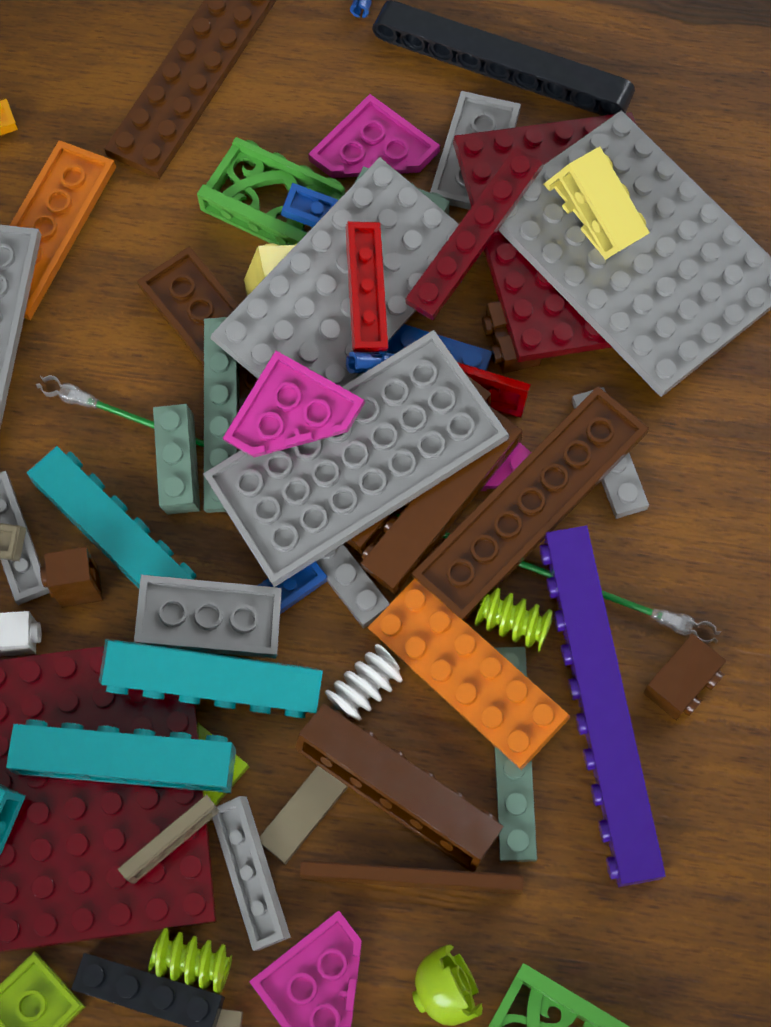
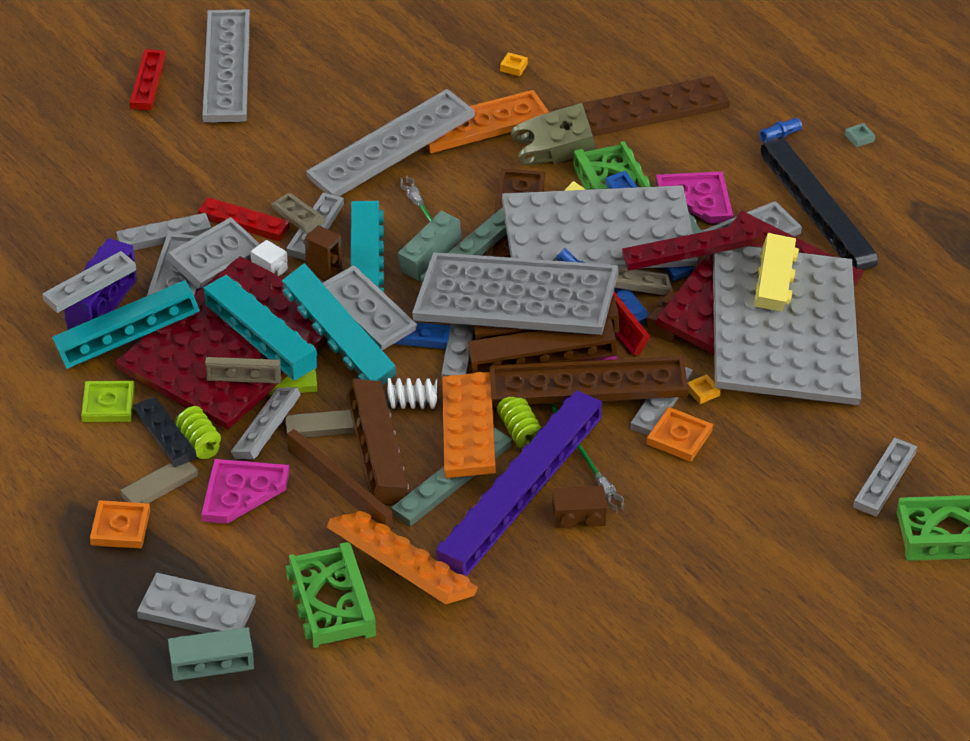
camera: 40 degrees right, 25 degrees down
(154, 197) = (554, 136): none -> olive brick
(291, 409) = (504, 247): dark pink plate -> none
(366, 287) = (605, 227): red plate -> none
(421, 325) = (643, 281): none -> dark tan tile
(446, 988) = (303, 527): lime cylinder -> none
(589, 924) = (402, 557): none -> orange plate
(641, 403) = (703, 389): none -> light orange plate
(678, 485) = (679, 434): none -> orange plate

